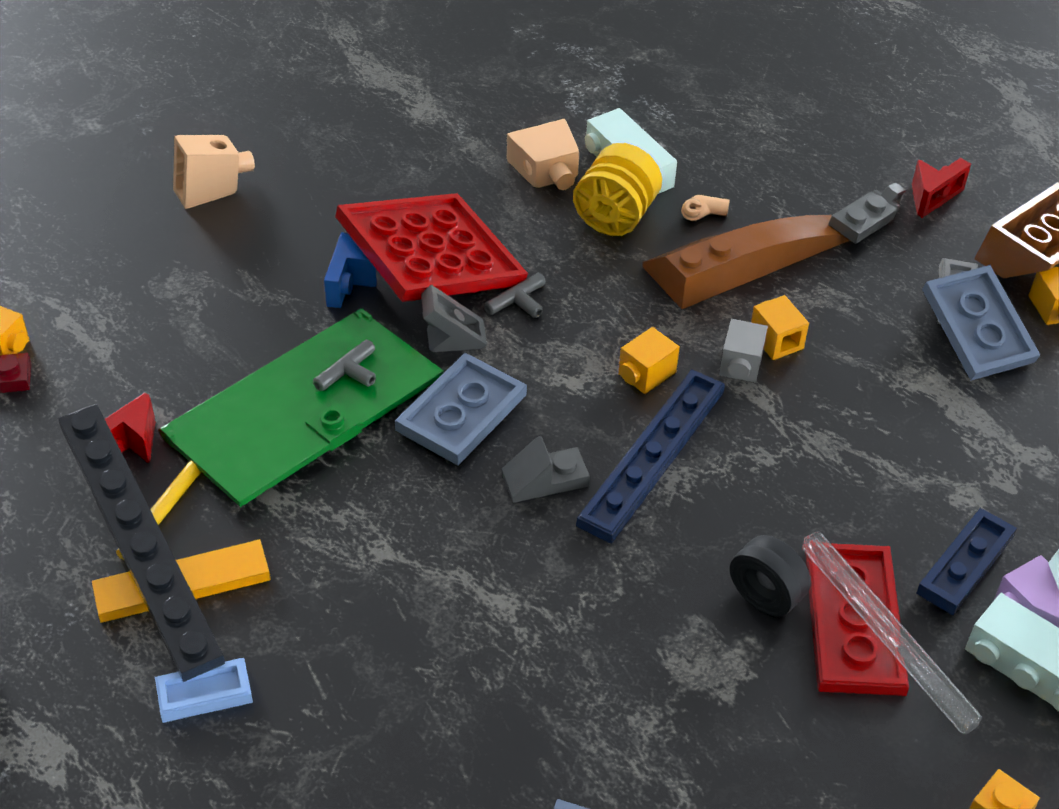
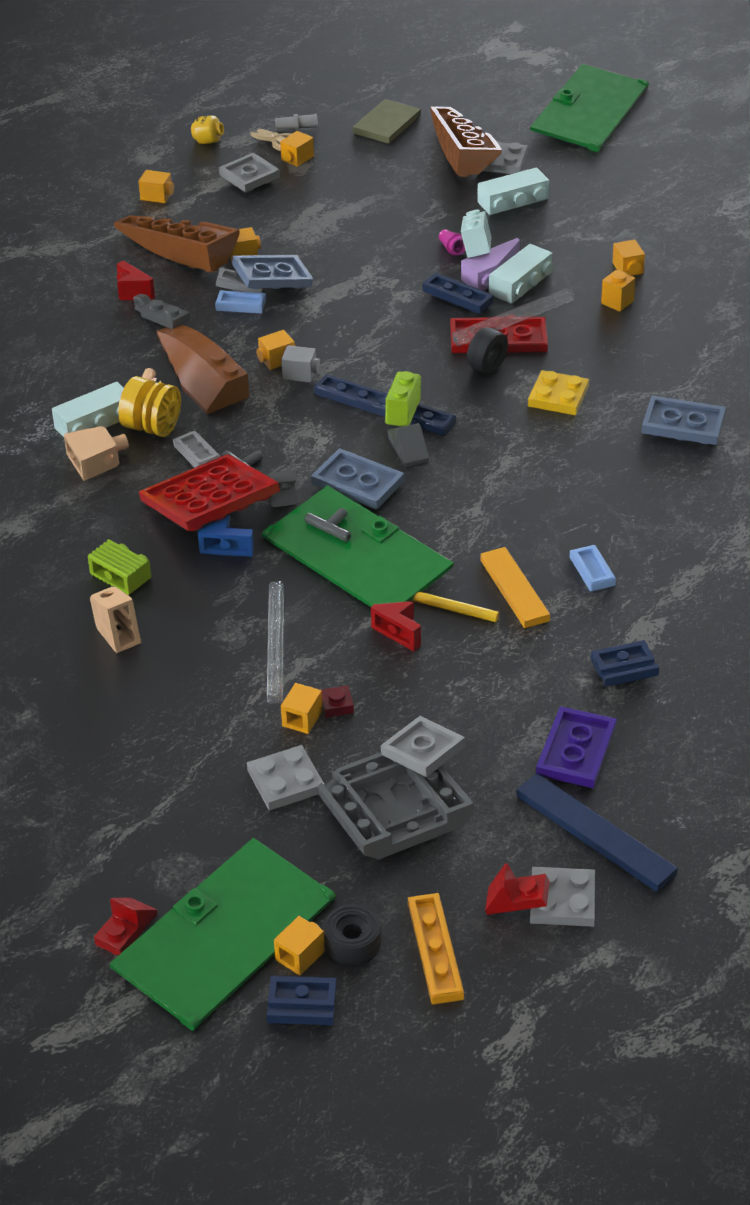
camera: 90 degrees left, 5 degrees down
(140, 317) = (275, 643): none -> clear axle
(142, 544) = (493, 593): black plate -> none
(311, 179) = (119, 566): none -> lime brick
(545, 247) = (195, 449): none -> light grey plate
(624, 450) = (403, 399): none -> lime brick
(648, 360) = (310, 401): light orange brick -> none
(682, 690) = (558, 392): none -> yellow plate
(911, 303) = (240, 301): none -> light blue tile

